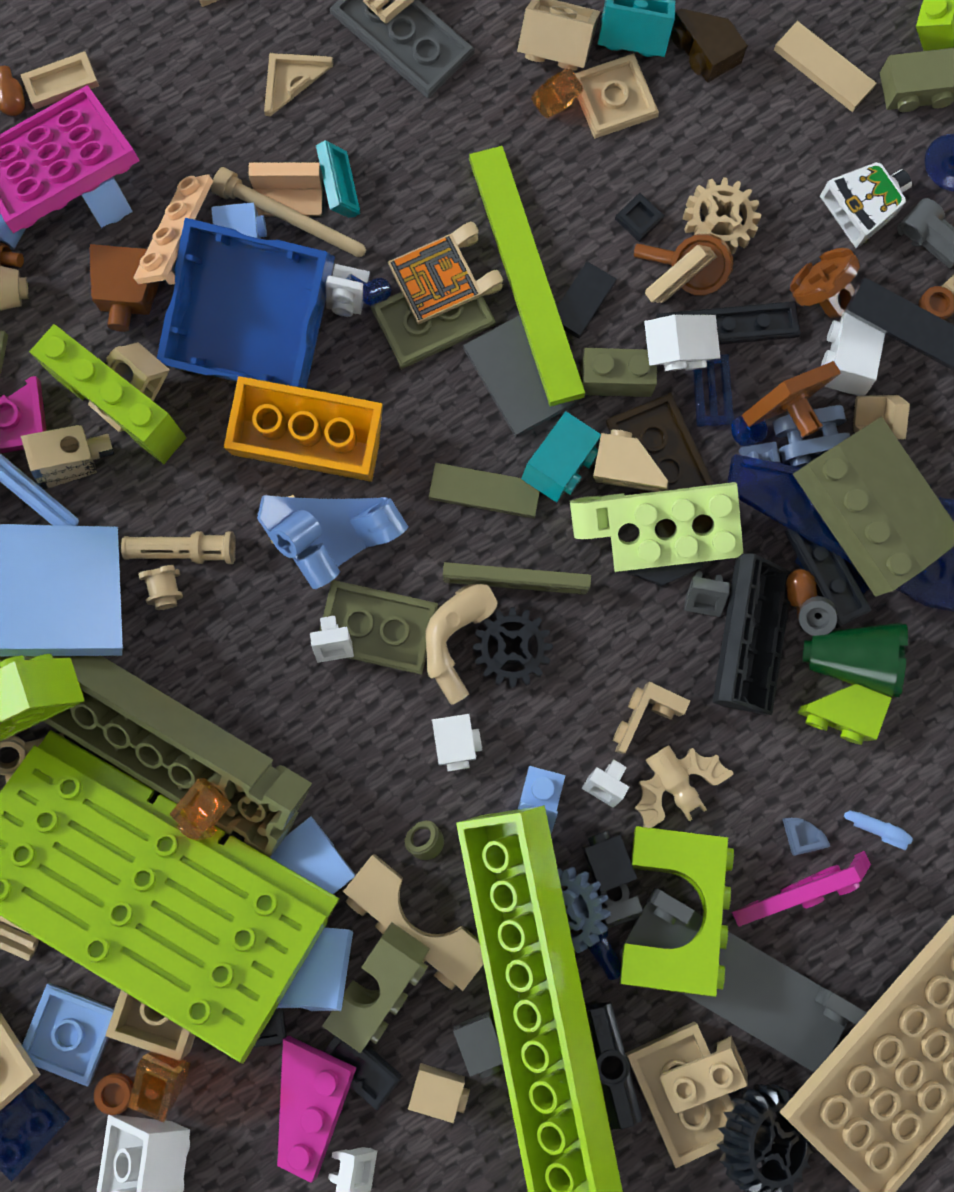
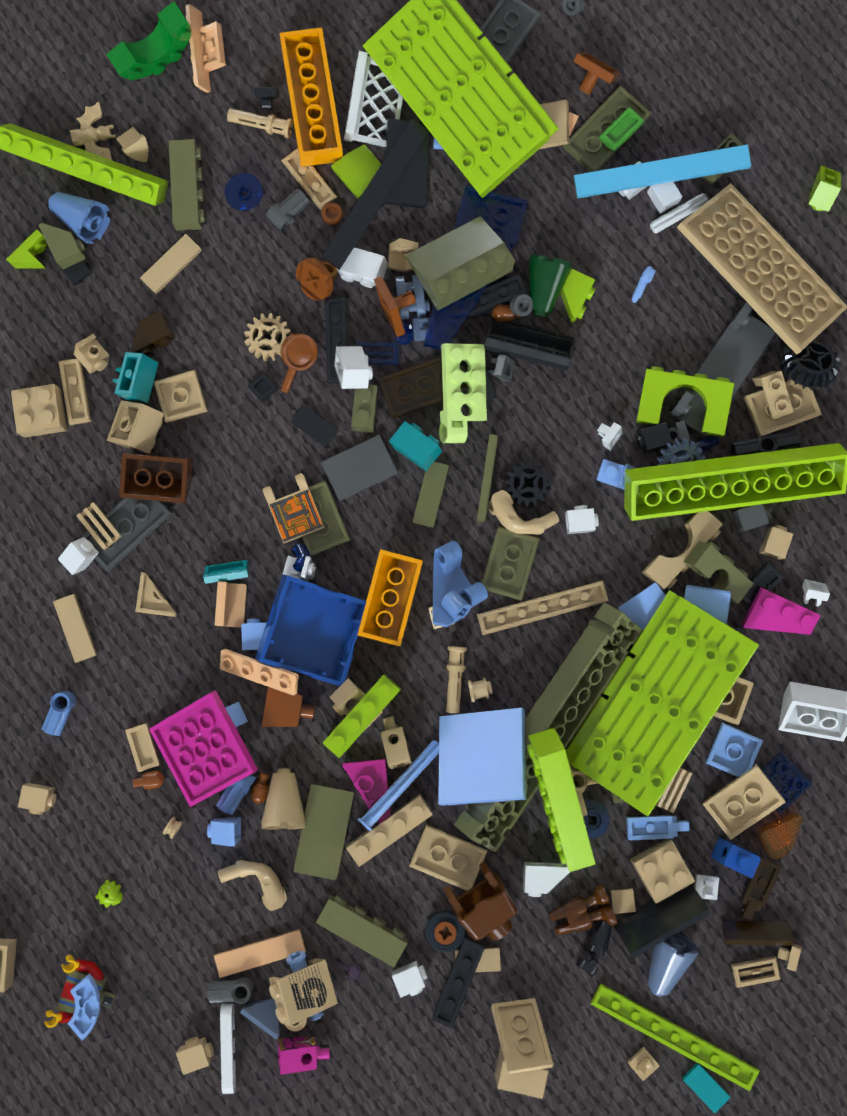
camera: 85 degrees left, 5 degrees up
(113, 1093) = (767, 725): dark orange tile -> none
(158, 1085) = (766, 697): clear orange slope -> none
(200, 810) = (617, 665): clear orange bracket -> none
(227, 185) = (224, 640): tan piece -> none
(305, 688) = (542, 607): none -> tan tile
(331, 642) = (520, 588): white tile -> none
(431, 848) = (640, 537): olive piece -> none
(480, 61) = (155, 477): none -> reddish brown slope
(526, 276) = (297, 459): lime tile -> none
(557, 93) = (178, 431): clear orange slope -> none
(627, 463) = (423, 407): tan slope -> none
(664, 704) = (563, 412): tan bracket -> none
(673, 776) = (607, 396): tan animal -> none
(680, 274) = (306, 364): tan tile -> none
(804, 836) = (645, 326): sand blue tile -> none
(808, 890) = (676, 326): dark pink wing -> none
(865, 200) = (264, 248): white torso -> none

